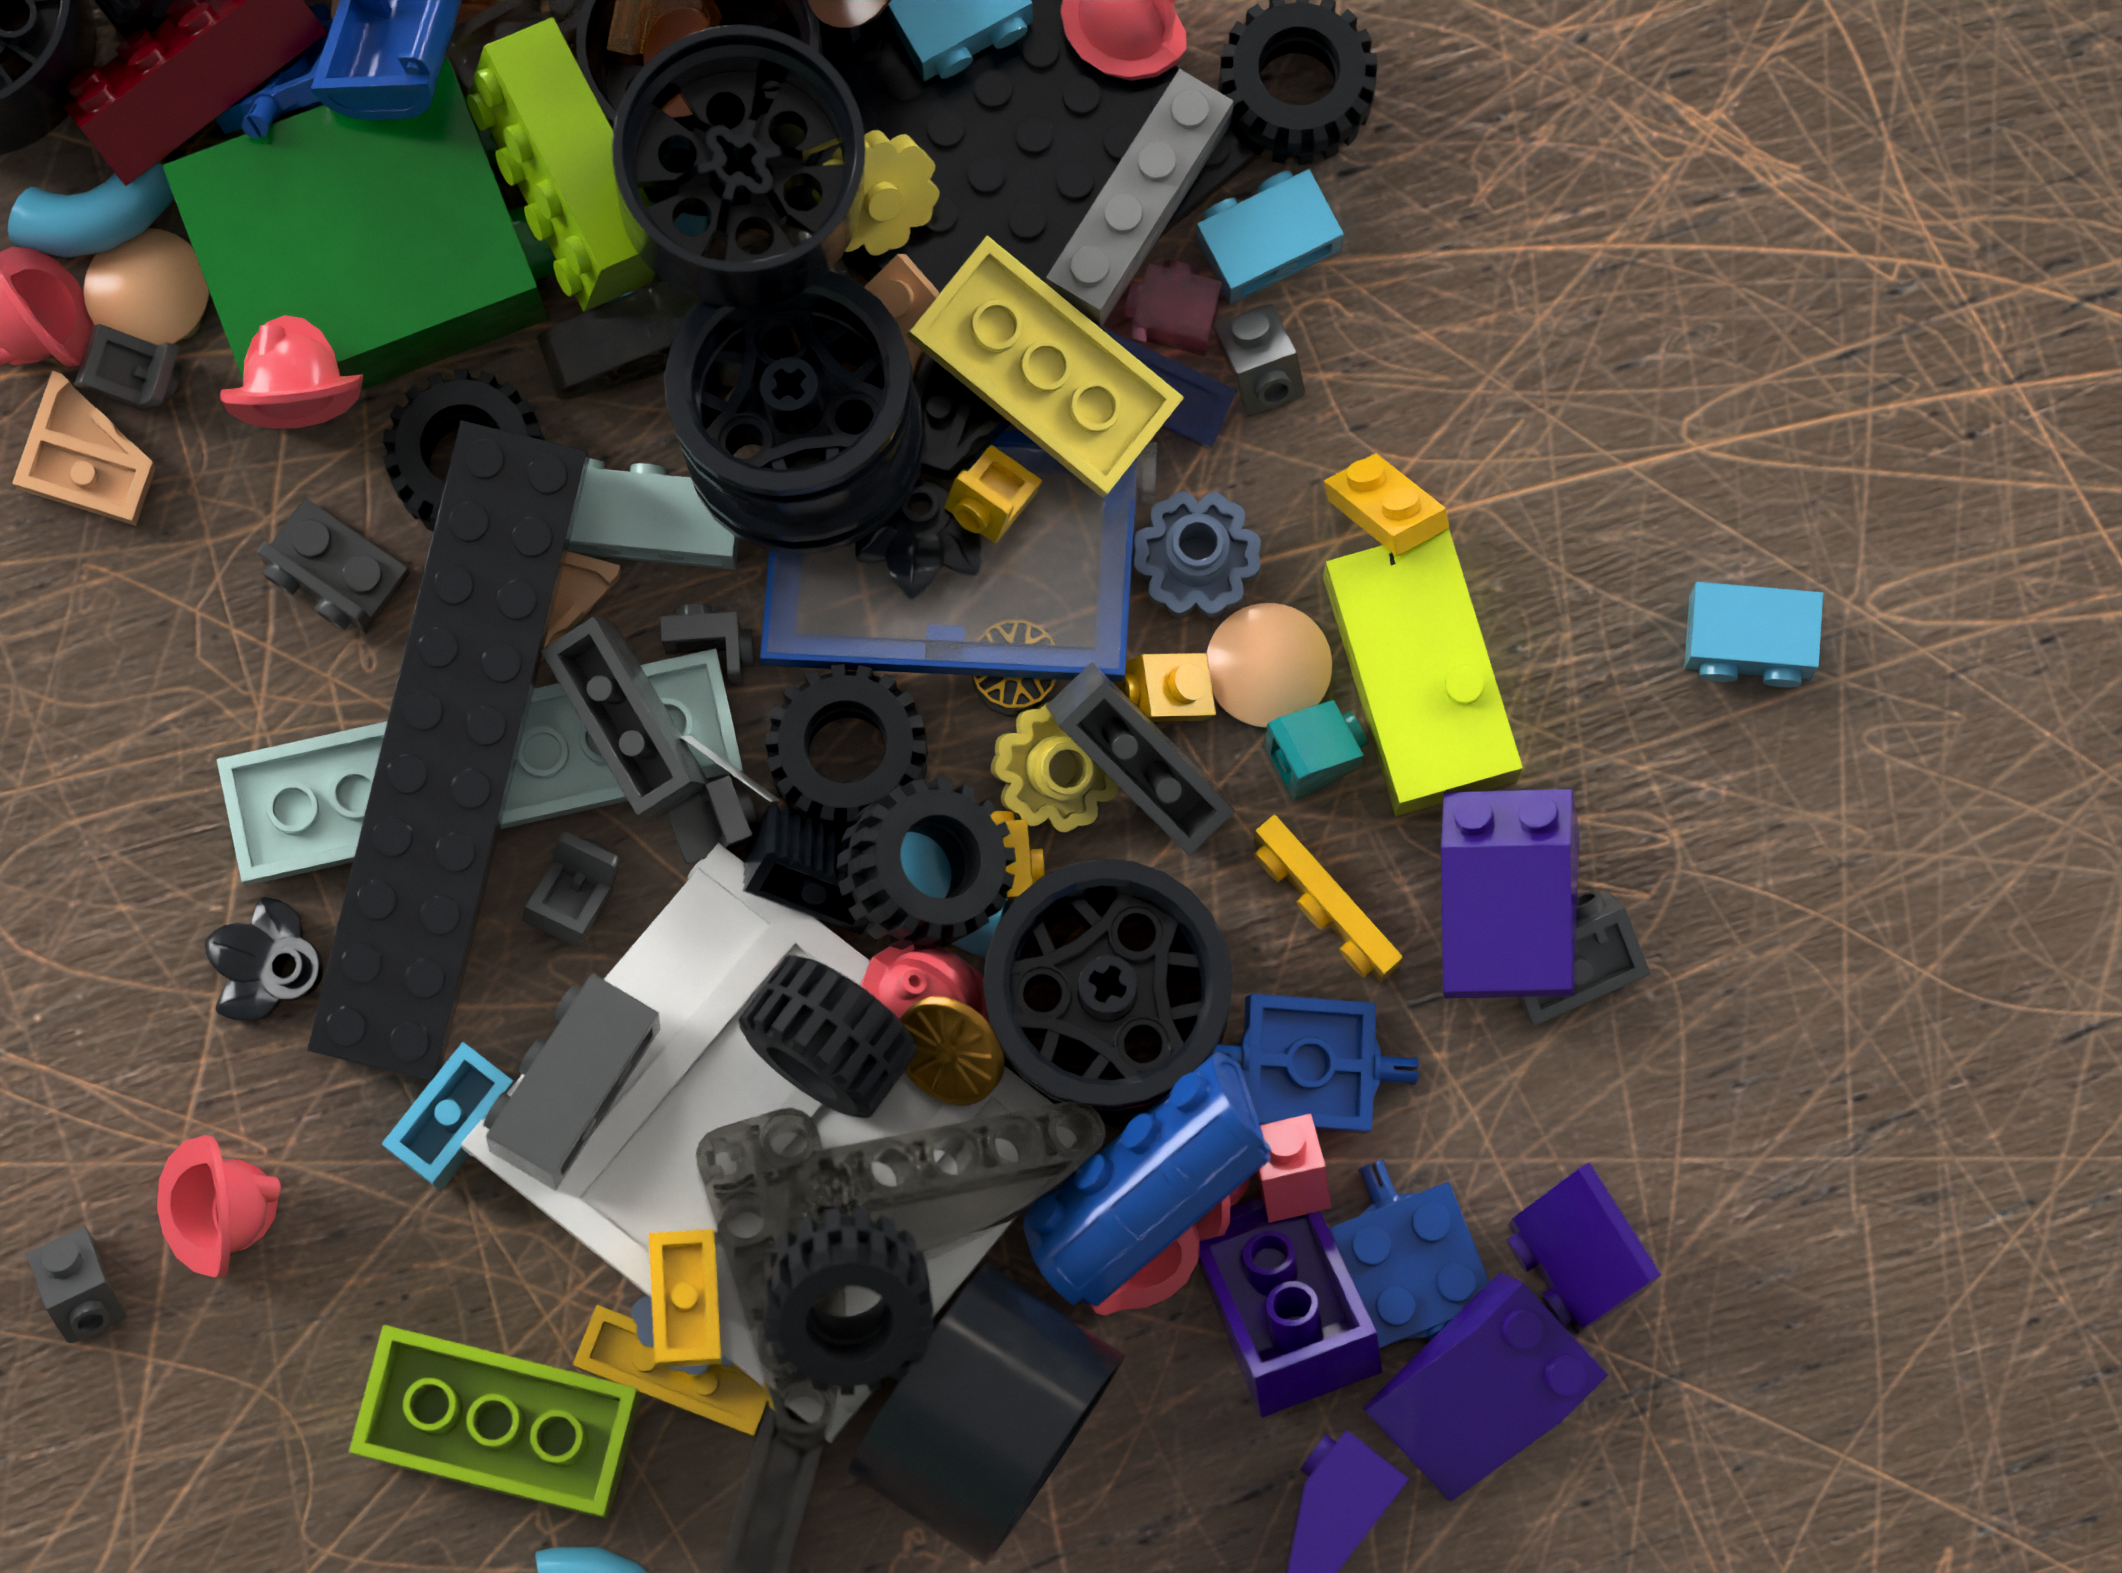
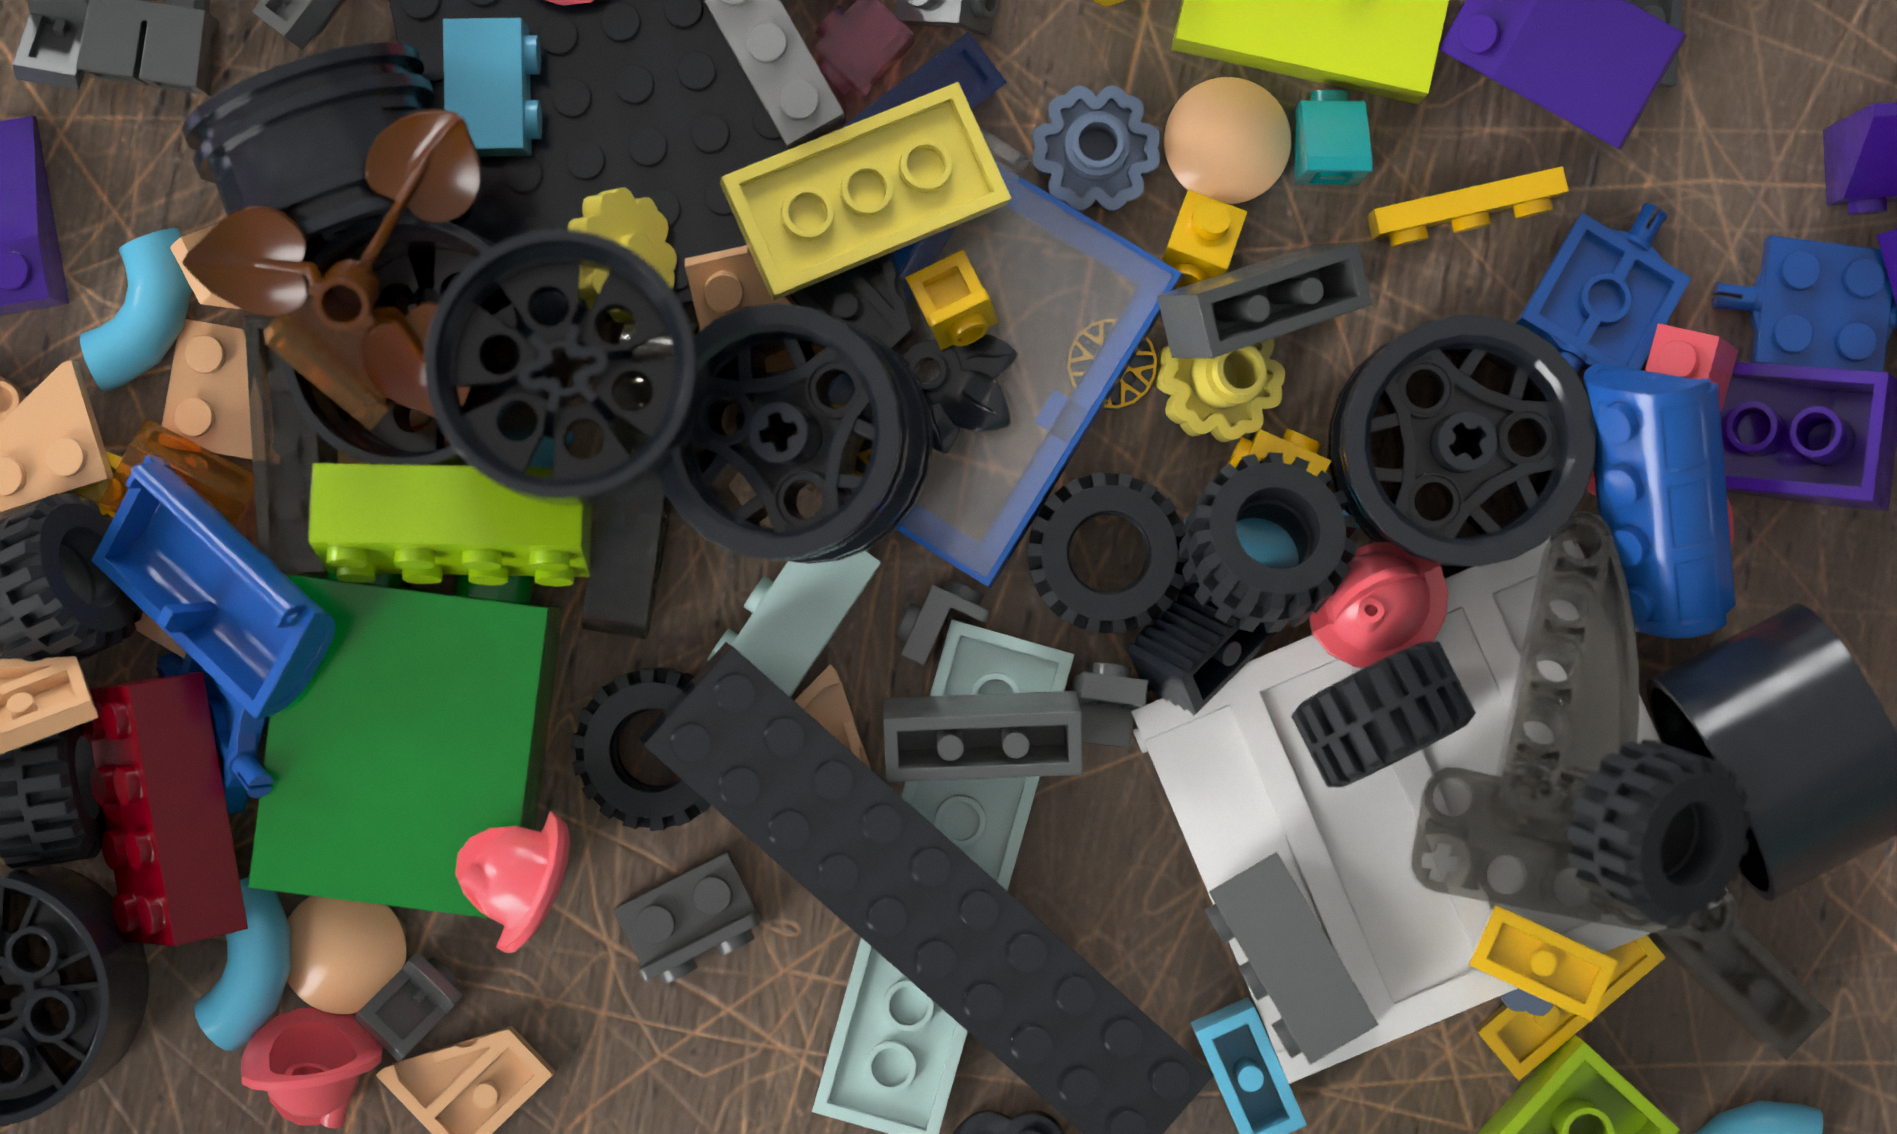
camera: 70 degrees left, 10 degrees up
(572, 889) = (1099, 860): dark grey bracket -> none
(731, 769) = (1072, 666): white sticker -> none
(956, 1053) = (1447, 607): pearl gold wheel -> none

